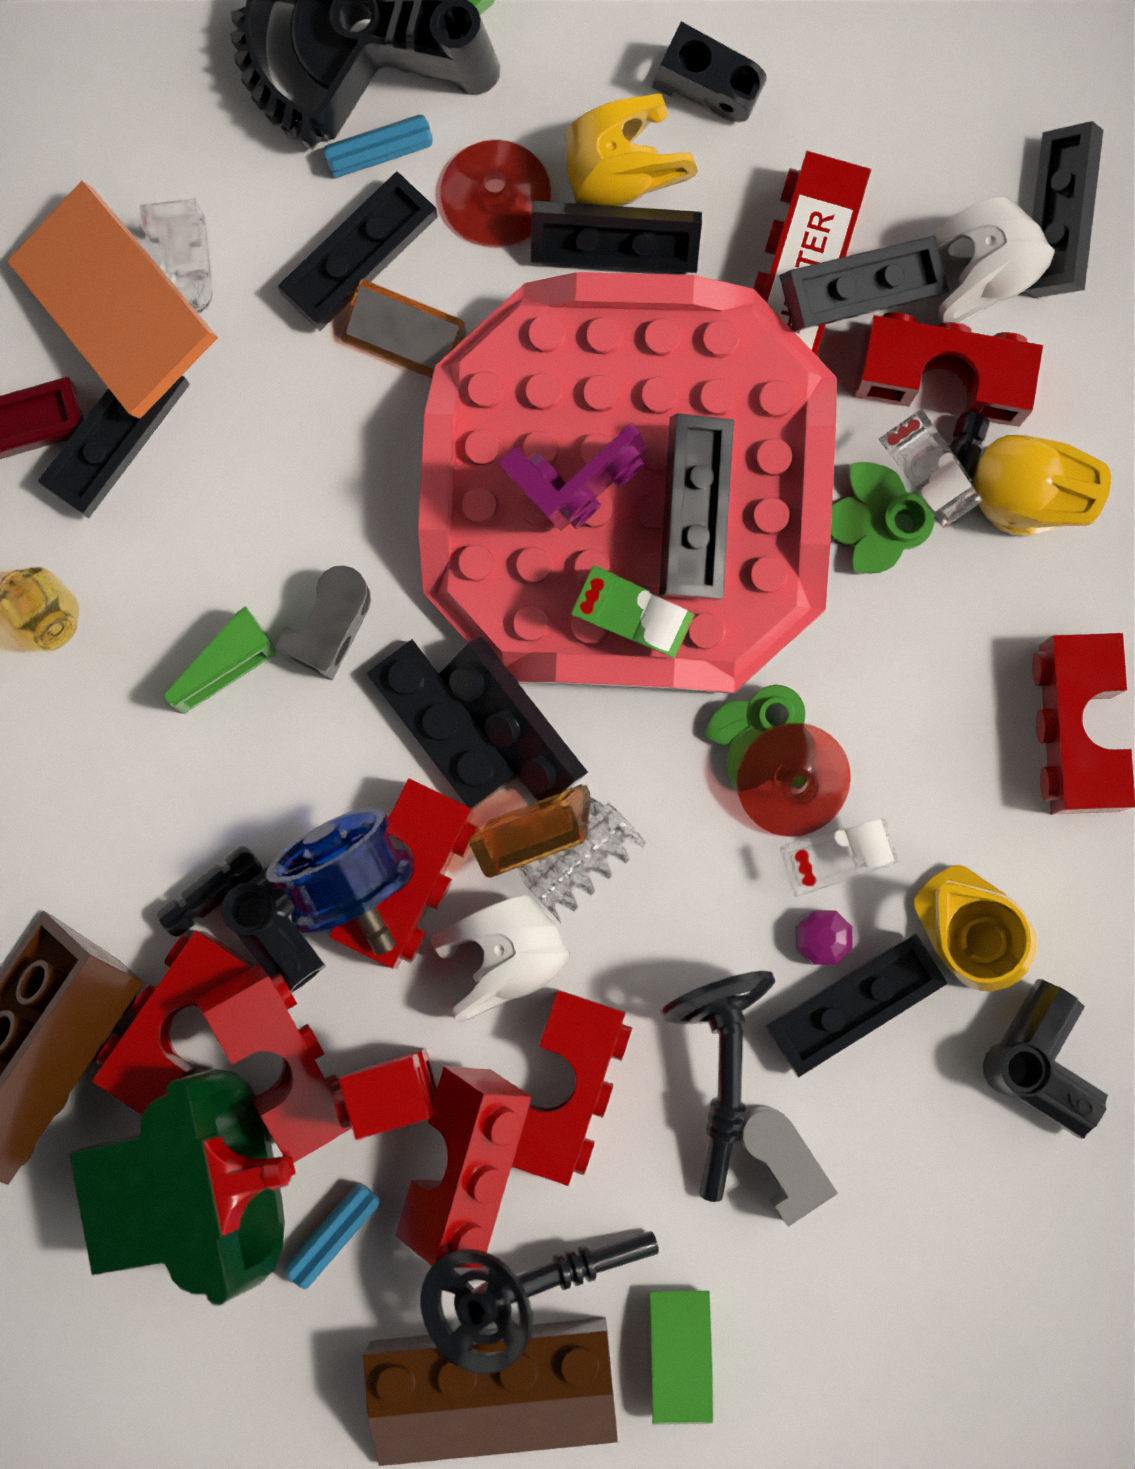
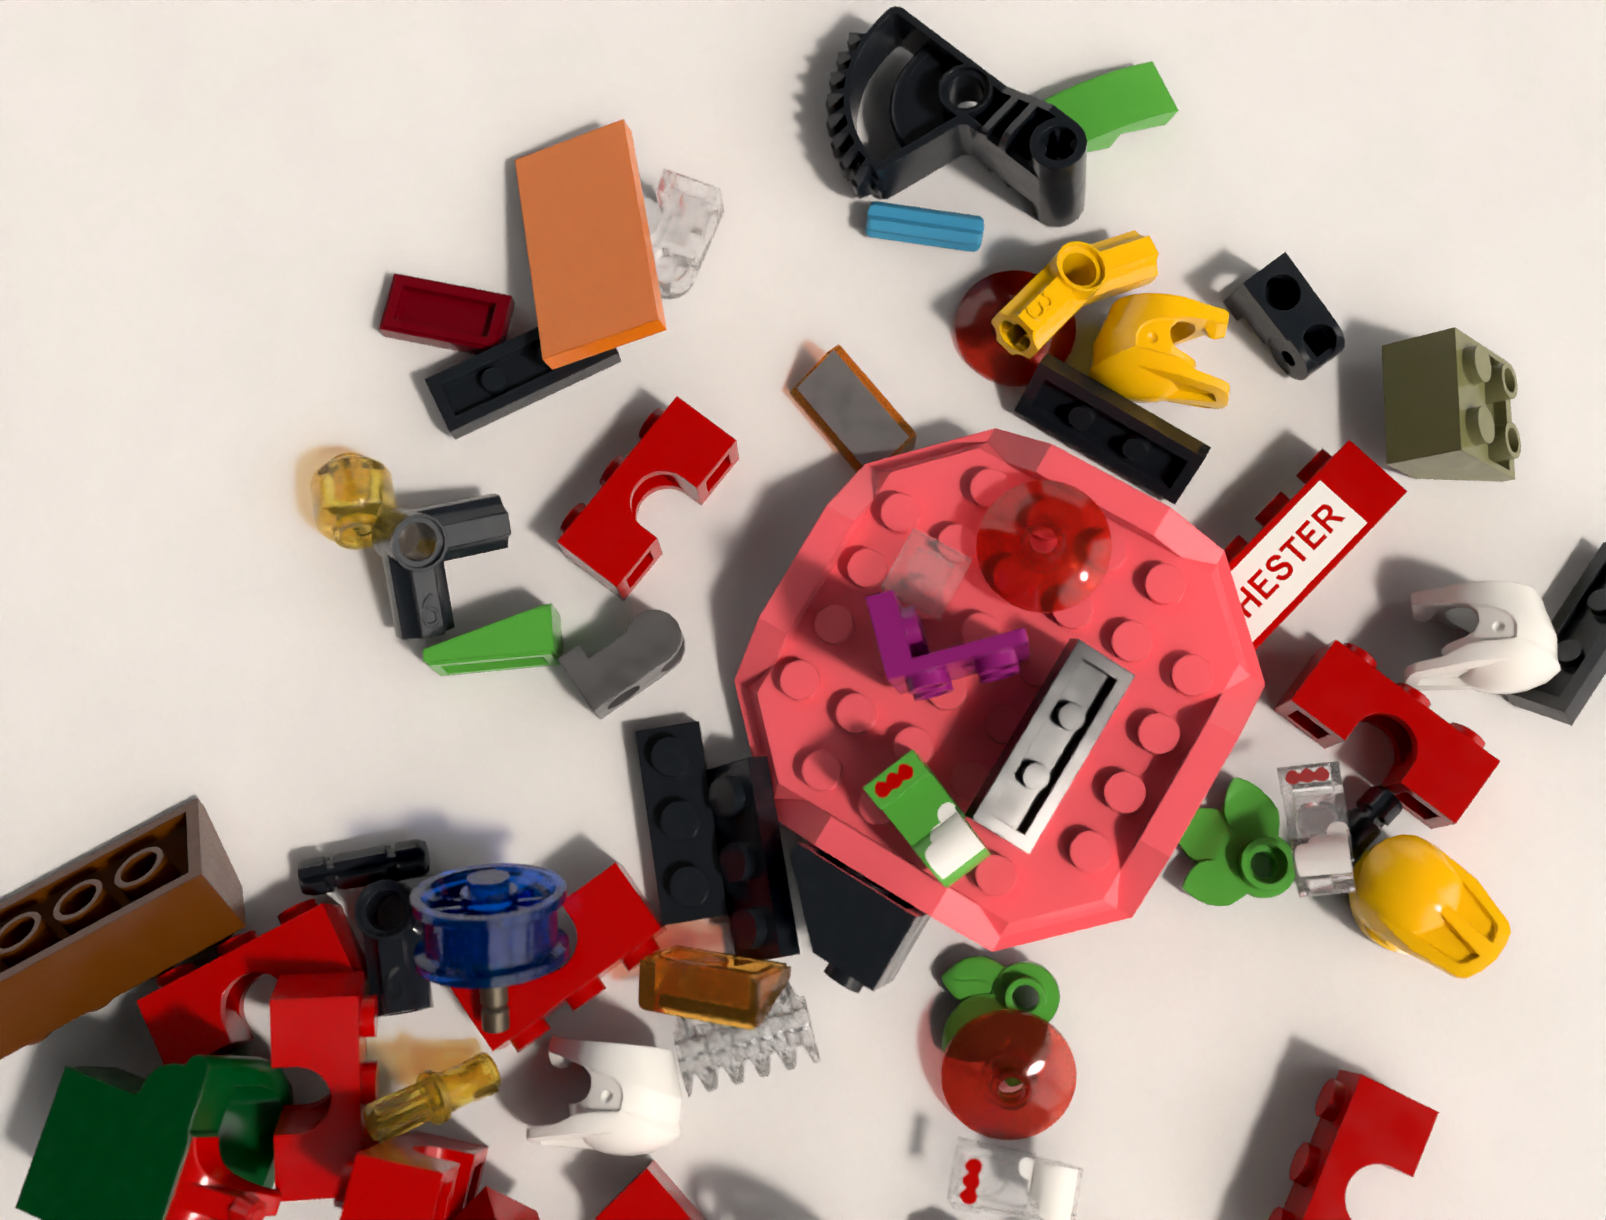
camera: 30 degrees right, 5 degrees down
(125, 641) = (418, 579): none -> black piece
(278, 434) = (675, 452): none -> red arch
(358, 250) = (851, 315): black plate -> none
(365, 1027) = (432, 1097): none -> clear yellow axle
(522, 131) = (1070, 280): none -> yellow piece
(532, 424) = (927, 573): none -> clear plate
(617, 721) = (853, 920): none -> black slope
(618, 385) = (1050, 579): none -> clear red dish
(863, 283) = (1341, 602): black plate -> none
(872, 85) = (1449, 409): none -> olive slope

